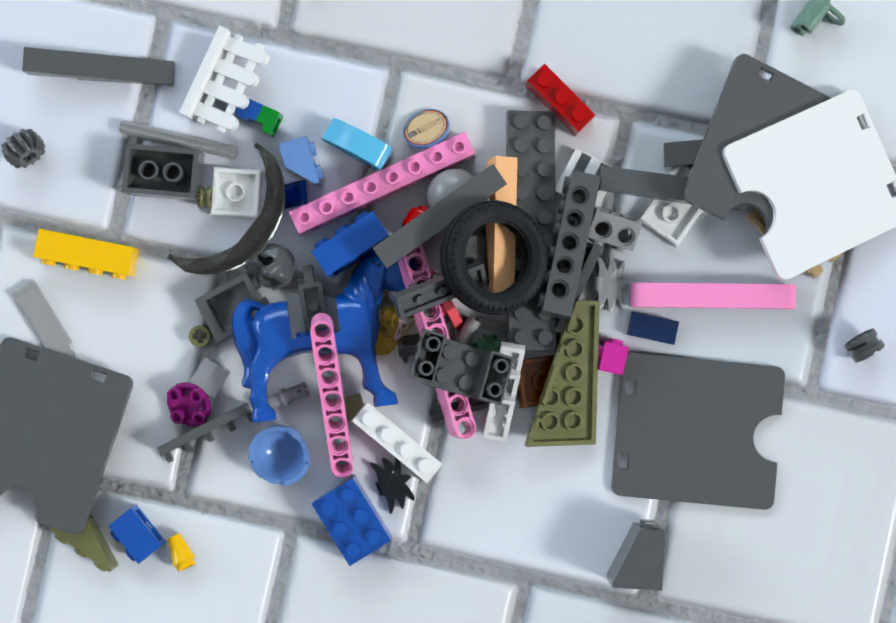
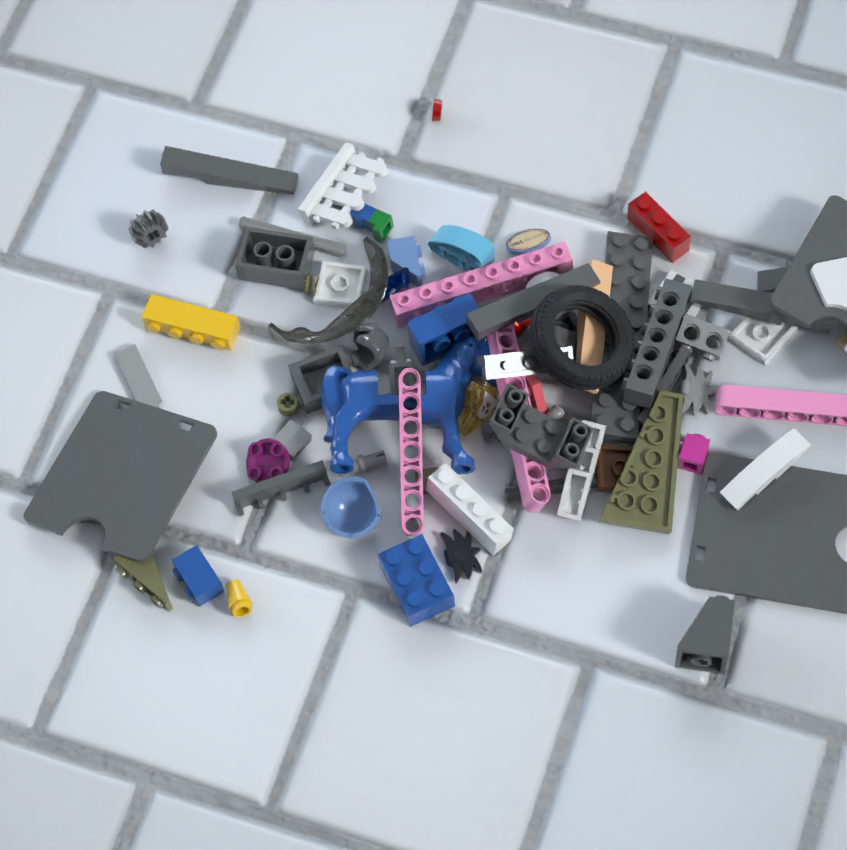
camera: 15 degrees right, 25 degrees down
(652, 328) = (737, 433): dark blue tile -> none
(684, 371) = (765, 468): none -> white slope

